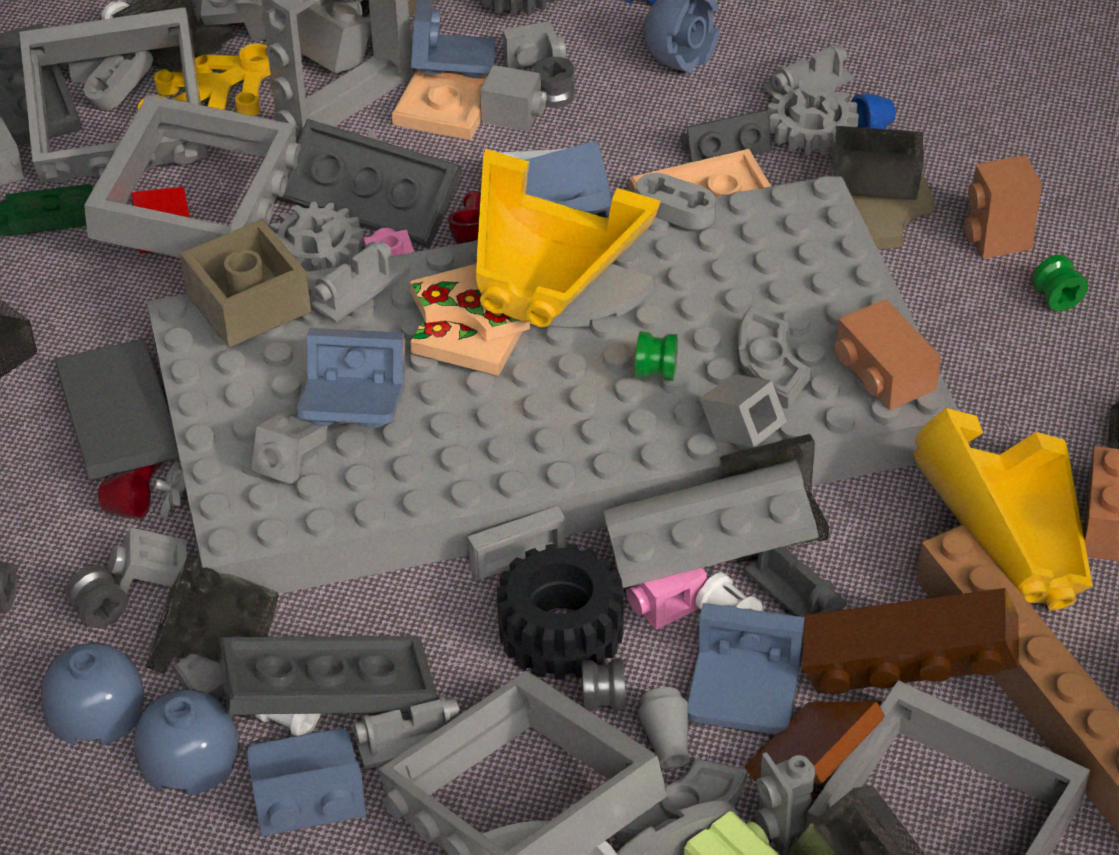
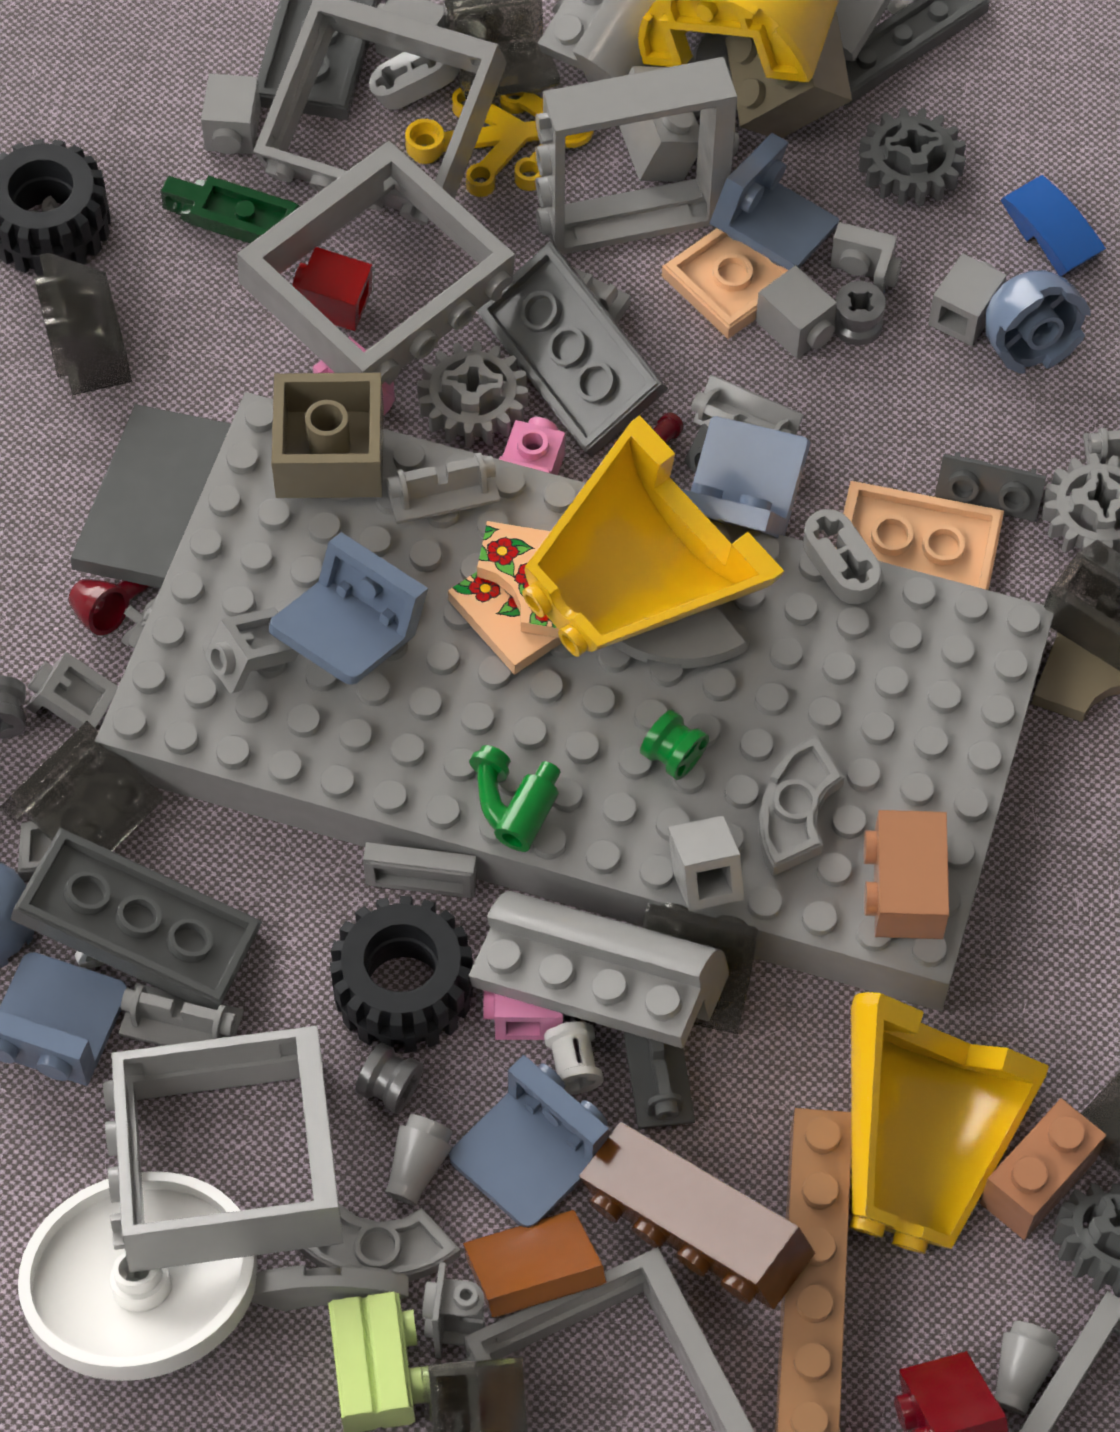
camera: 30 degrees right, 15 degrees up
(581, 442) = (524, 816): none -> green plant
(623, 43) = (963, 298): none -> light grey brick

